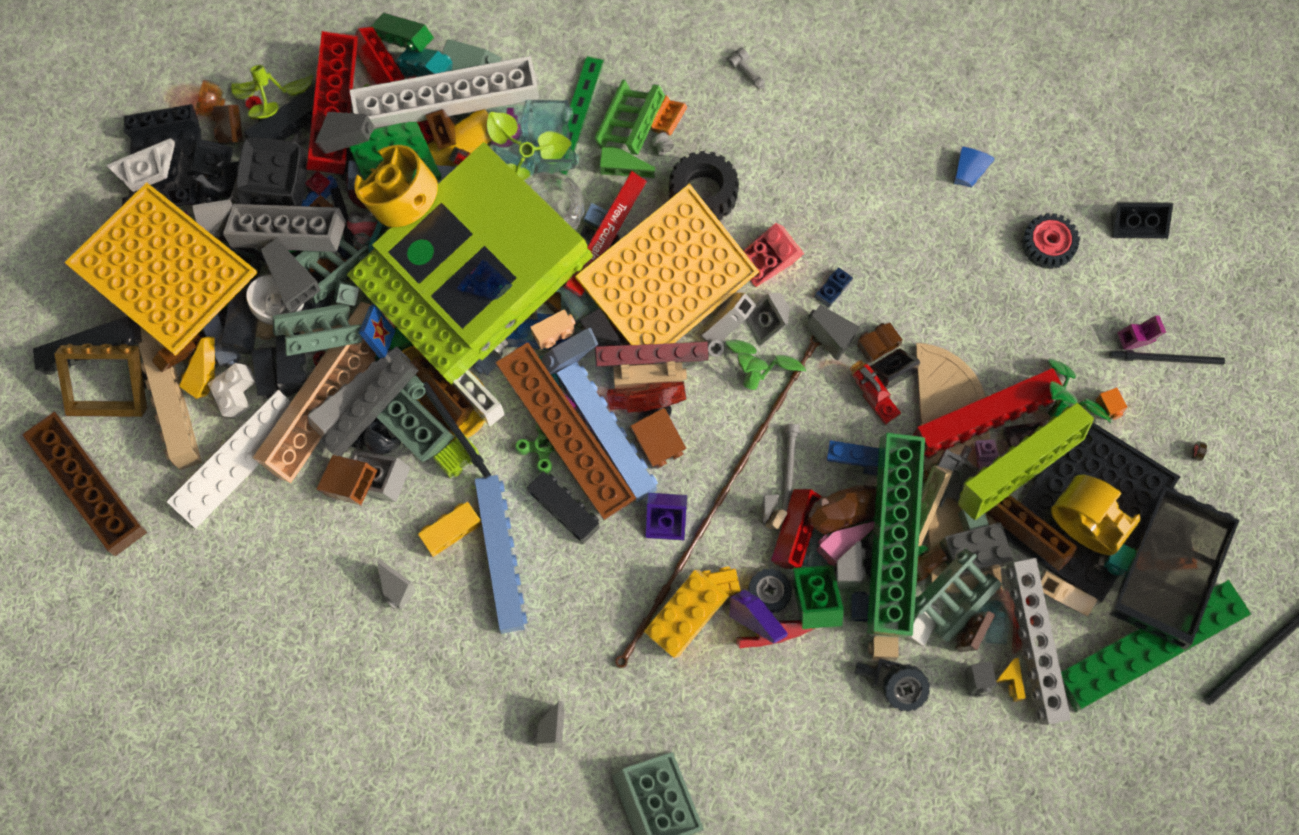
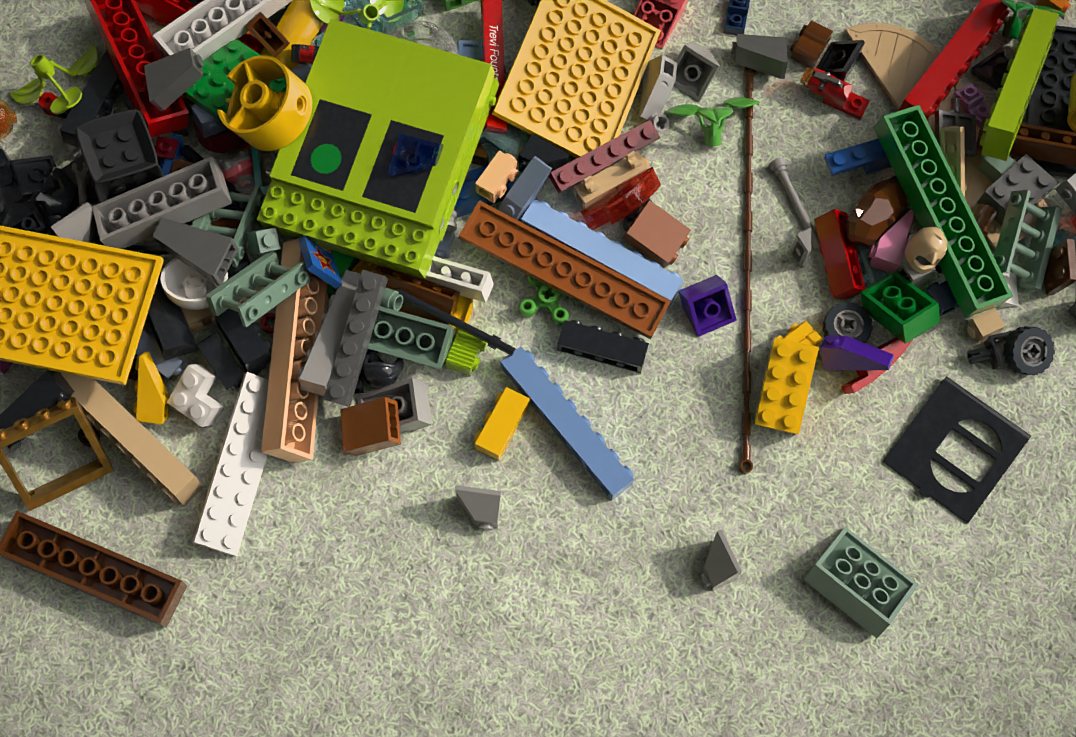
camera: 30 degrees left, 0 degrees up
(165, 359) = (115, 393): reddish brown piece -> none
(227, 123) = (32, 132): reddish brown slope -> none
(776, 519) = (815, 257): tan tile -> none
(803, 702) = (940, 415): none -> black door
(862, 559) = (926, 243): none -> tan piece

